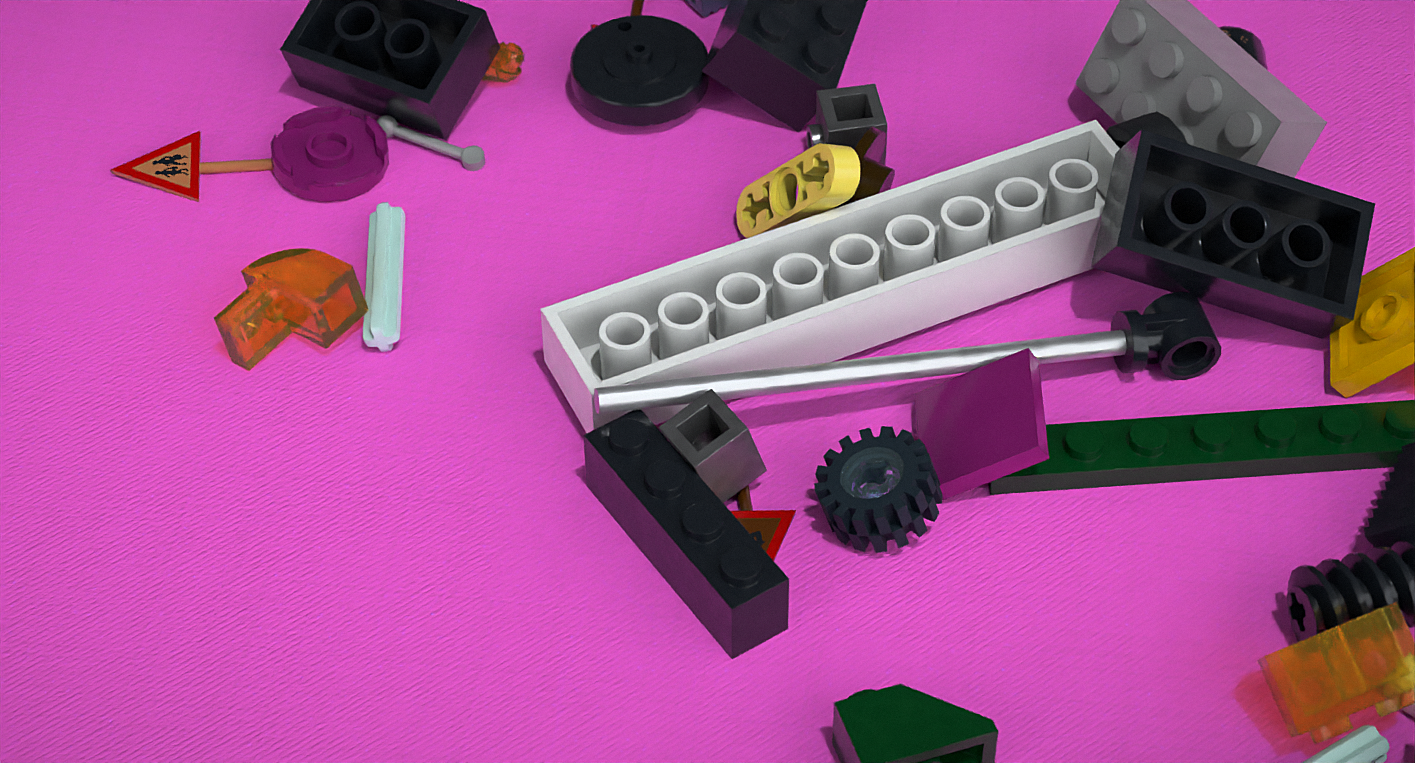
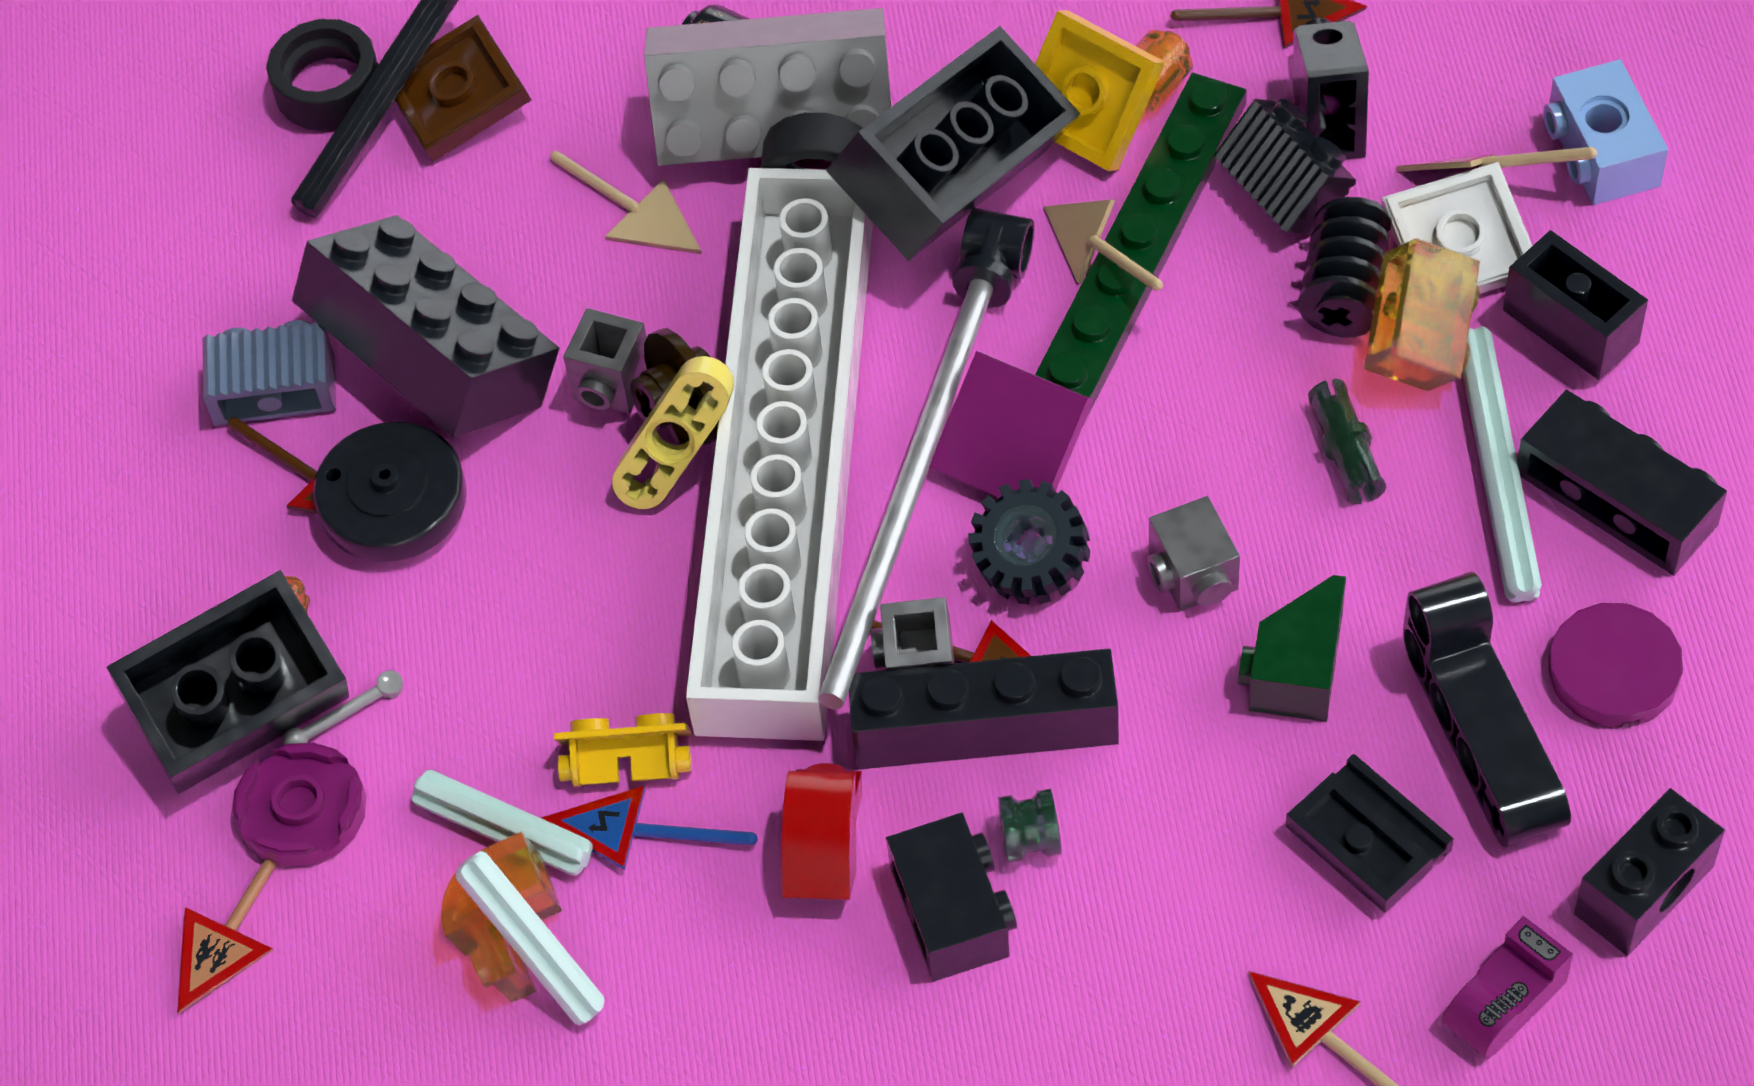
camera: 55 degrees left, 10 degrees up
(265, 321) = (530, 938): none -> light aqua axle
(430, 344) = (613, 824): none -> blue piece
(483, 590) = (949, 896): none -> black brick
(485, 299) = (597, 750): none -> yellow hinge
(485, 461) = (820, 832): none -> red brick
(590, 616) = (1029, 825): none -> wheel
(954, 616) = (1192, 555): none -> flat silver brick
(1031, 117) = (649, 223): none -> tan piece
(1173, 688) = (1346, 441): none -> pin
(1252, 384) = (1079, 234): none -> tan piece

